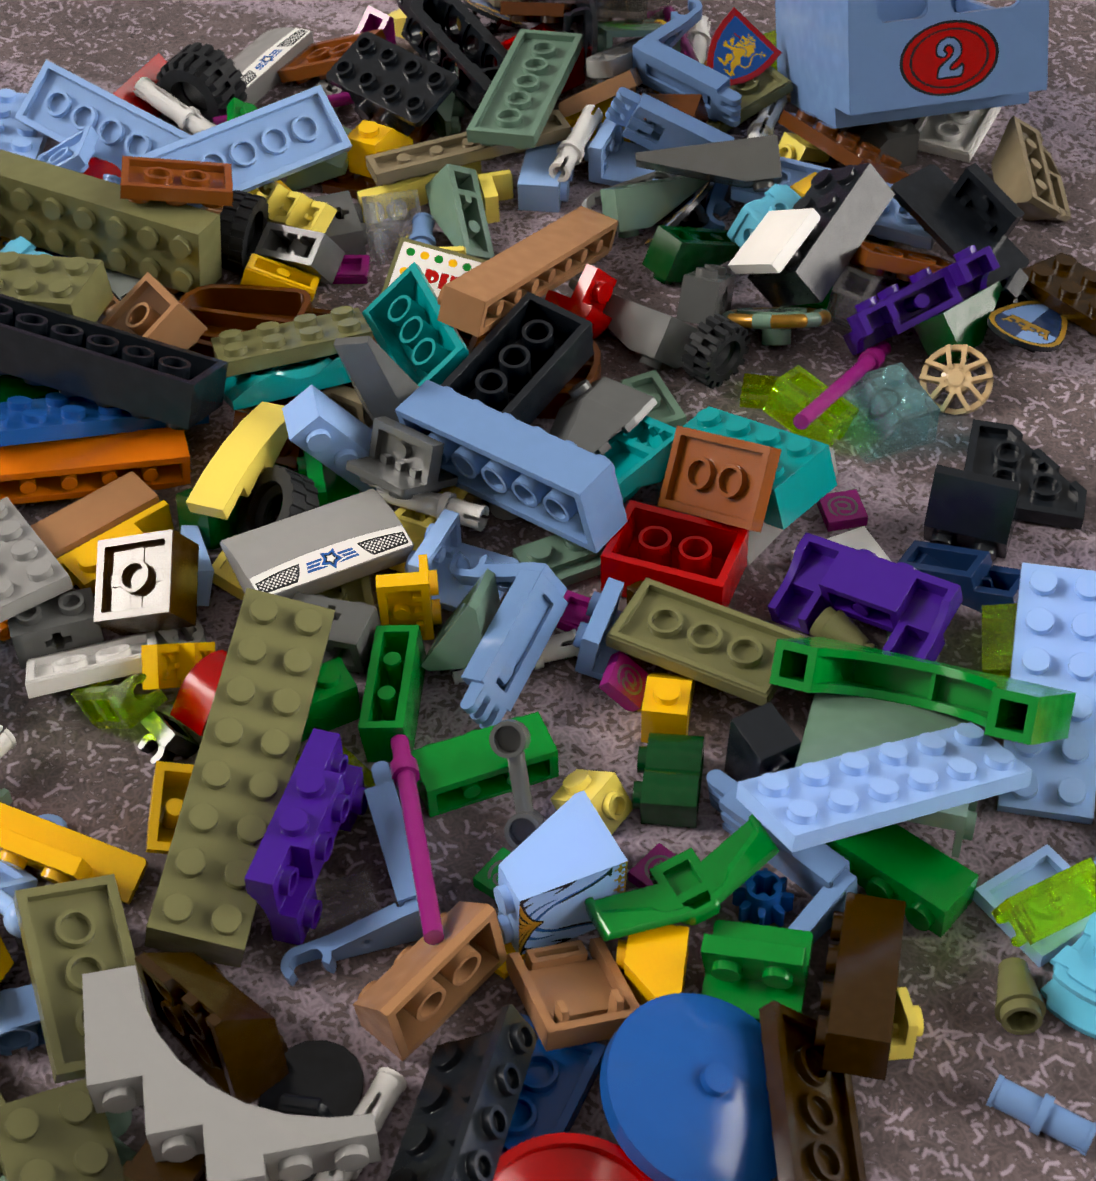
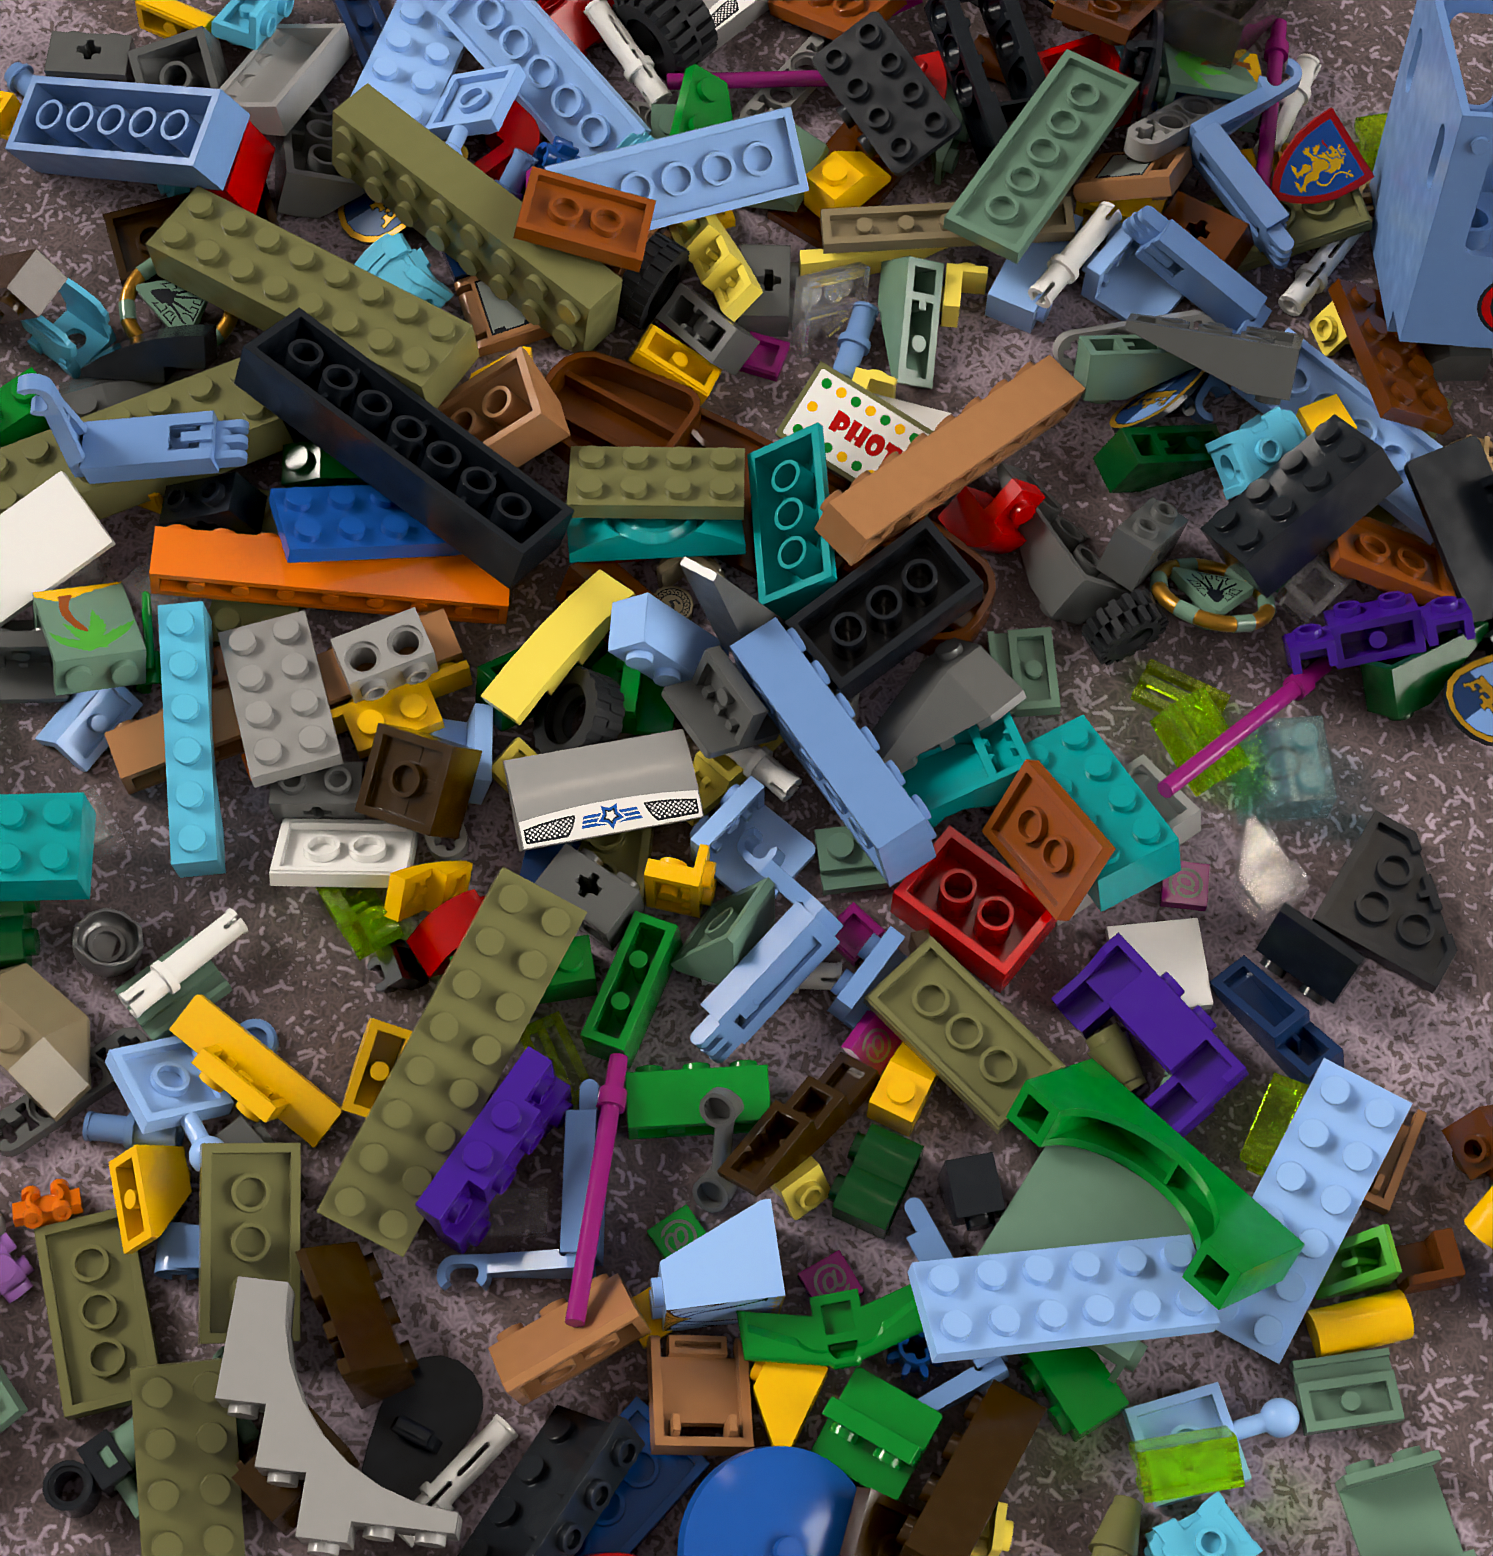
camera: 15 degrees right, 20 degrees up
(89, 505) = (380, 645): none -> light grey brick
(584, 749) = (800, 1126): none -> dark brown slope
(774, 241) = (1238, 507): white tile -> none
(901, 482) = (1265, 875): none -> clear slope
(957, 378) = (1380, 747): tan wheel -> none

